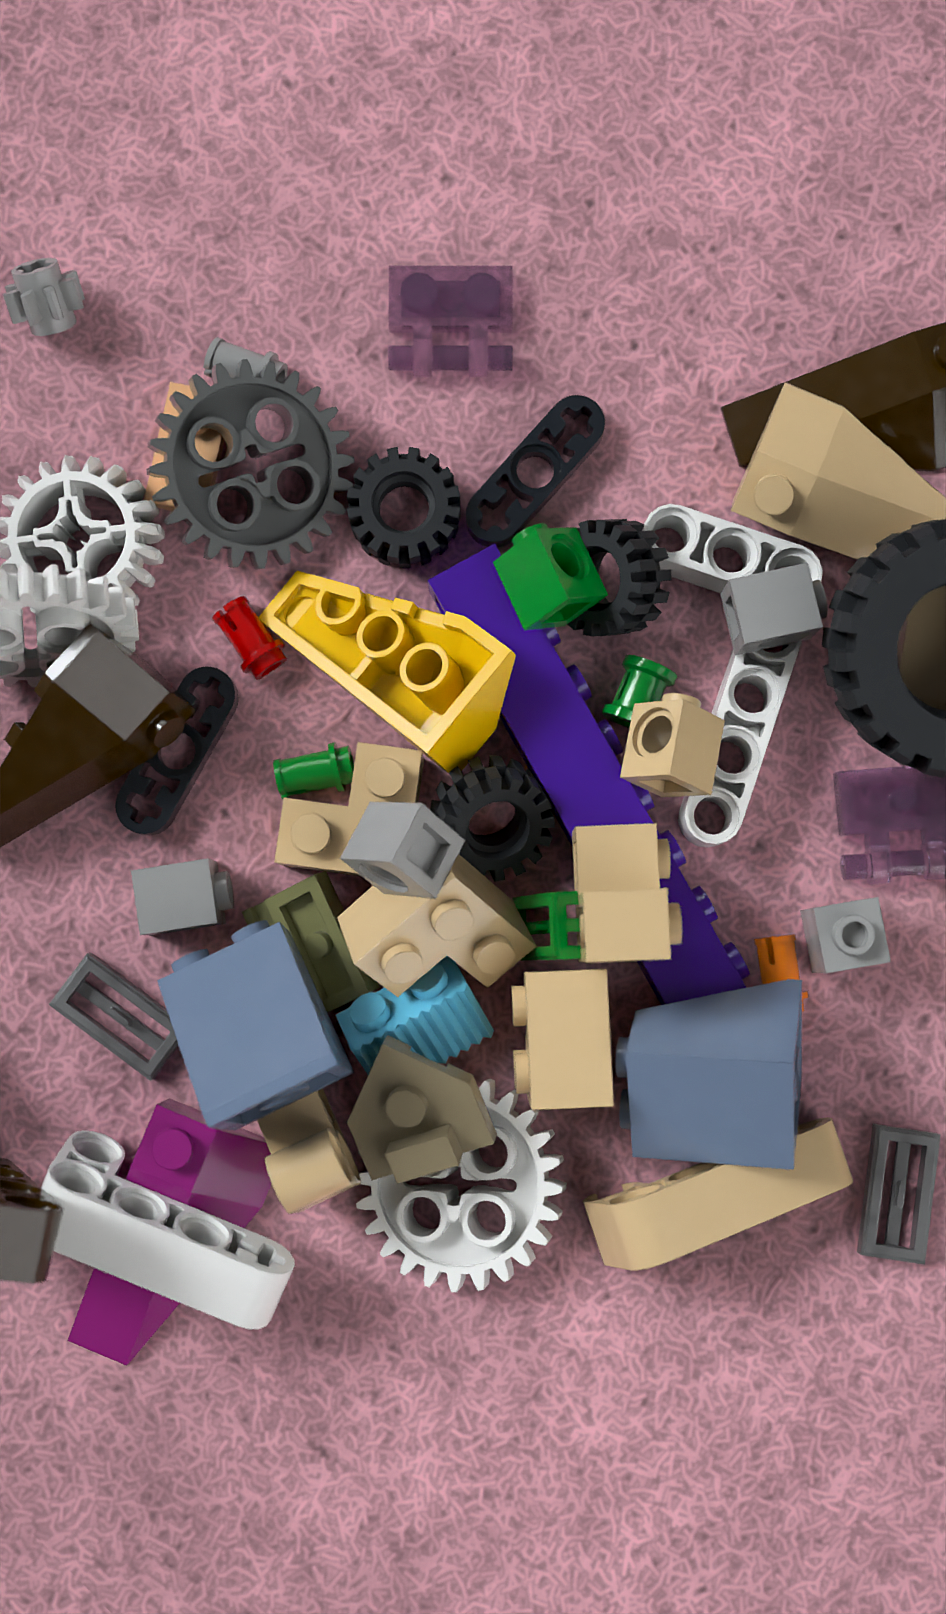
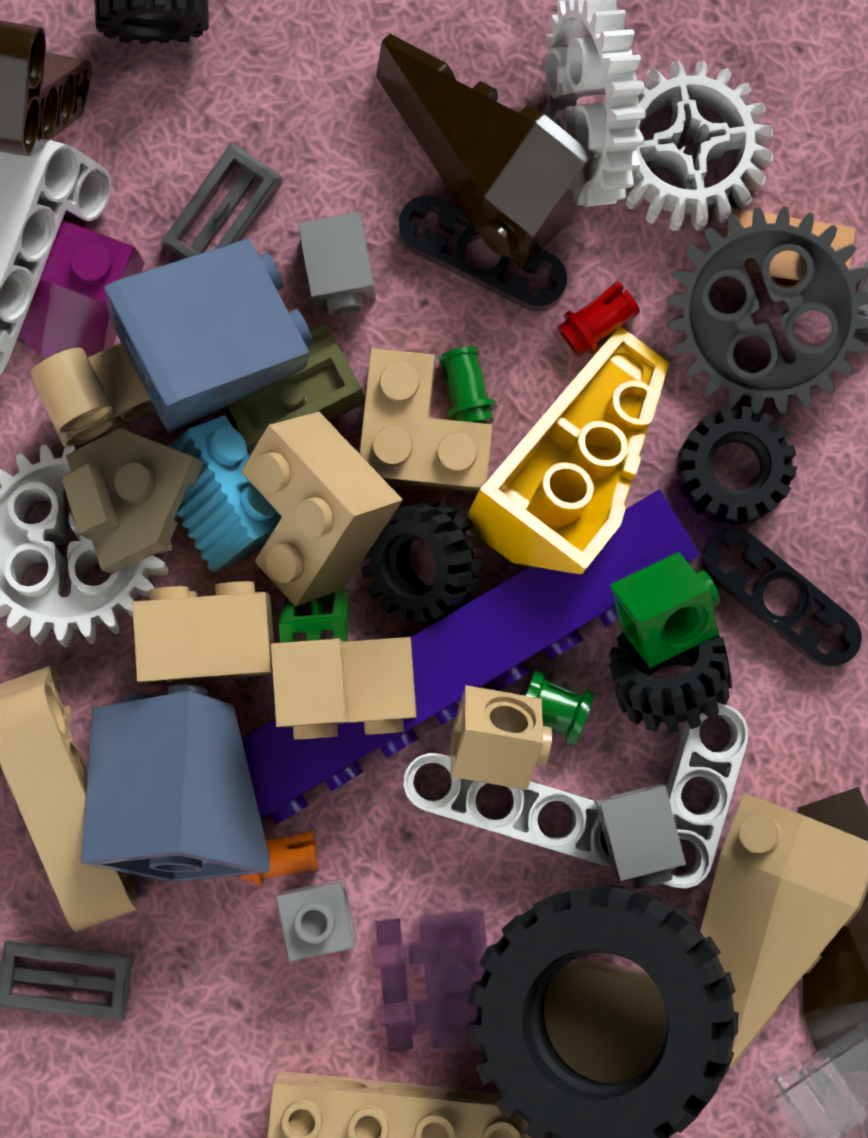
camera: 90 degrees right, 0 degrees up
(403, 849) = (381, 466): light grey brick -> none

